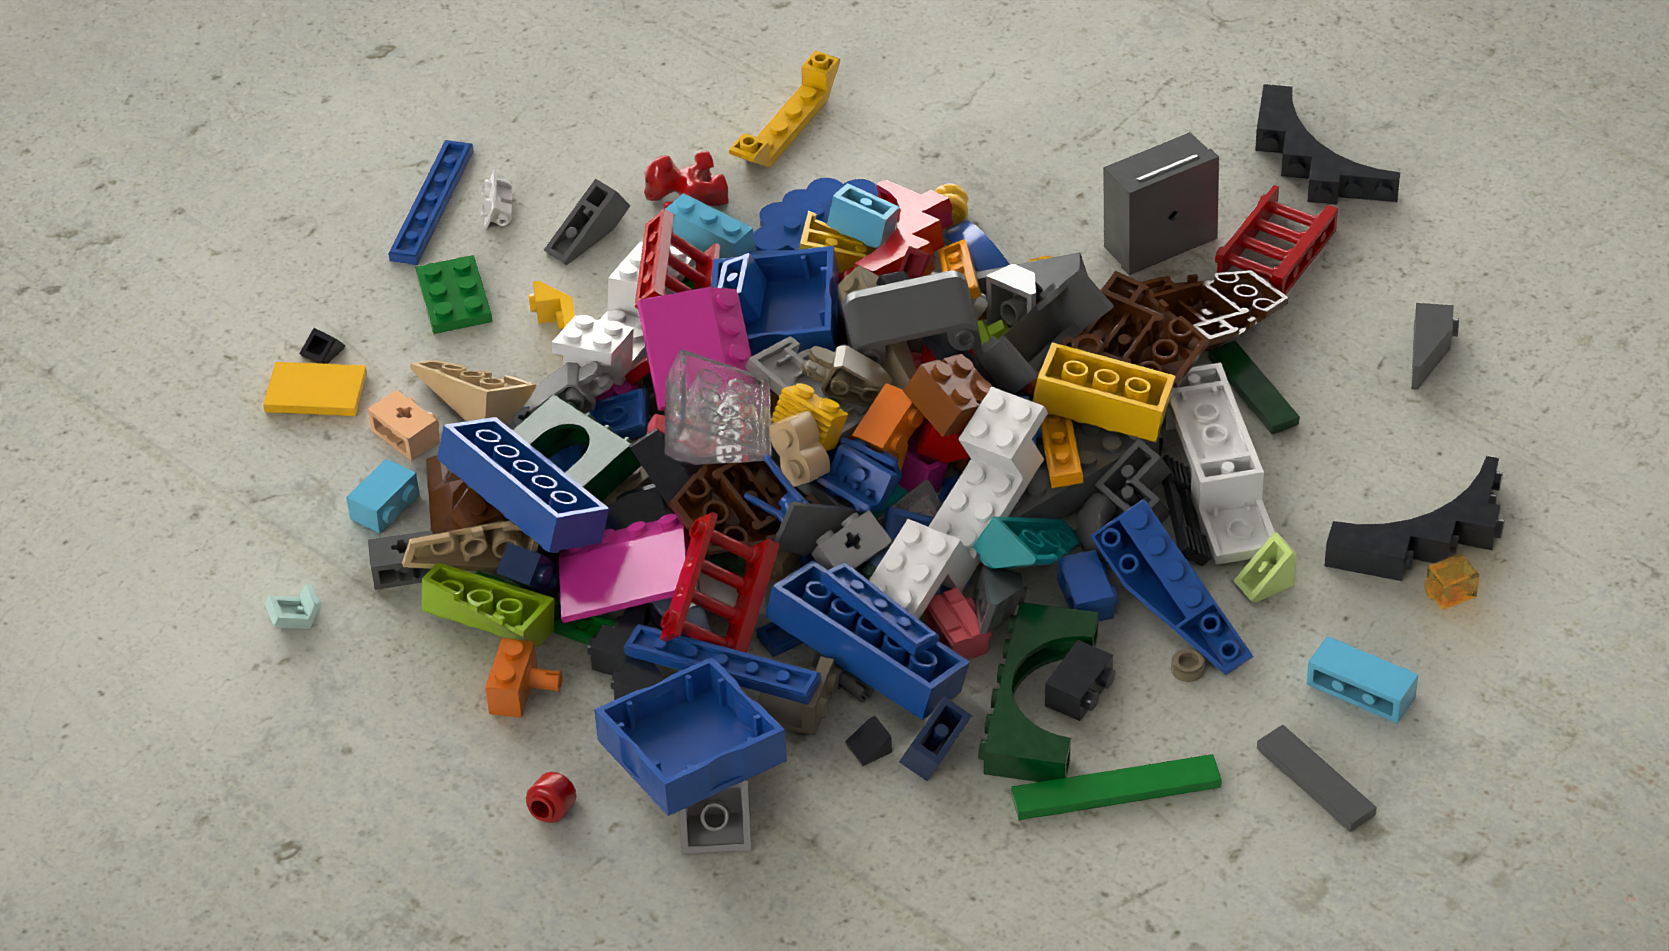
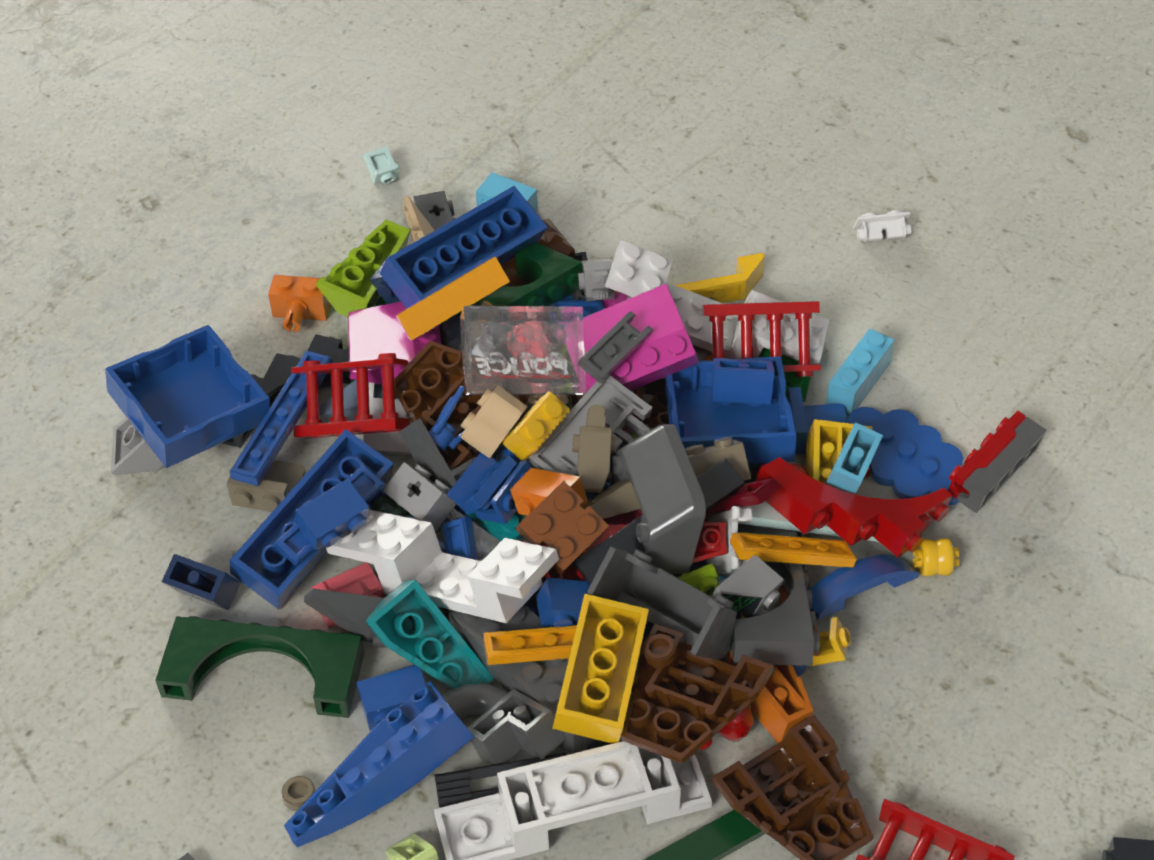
camera: 85 degrees right, 5 degrees up
(315, 388) = (635, 149): yellow tile -> none
(321, 347) = (686, 146): black slope -> none
(404, 425) = (589, 201): light nougat brick -> none
(431, 202) = (879, 188): blue tile -> none
(453, 294) = (760, 216): green plate -> none
(475, 393) = (641, 227): tan wedge -> none
(550, 797) = (167, 330): red head -> none
(588, 222) = (864, 288): dark grey slope -> none
(610, 482) = (452, 298): none -> light orange tile
(694, 180) = (916, 357): red animal -> none
(726, 340) = (613, 348): none -> dark grey hinge
(817, 81) = (1061, 428): yellow slope -> none
(843, 149) = (995, 461): none -> dark grey piece
(870, 741) = (218, 544): black slope -> none
(894, 590) = (332, 515): none -> blue brick
(1079, 680) = (273, 696): black brick -> none
(1116, 787) = (148, 738): green tile -> none
(1160, 202) = (936, 727): dark grey container -> none

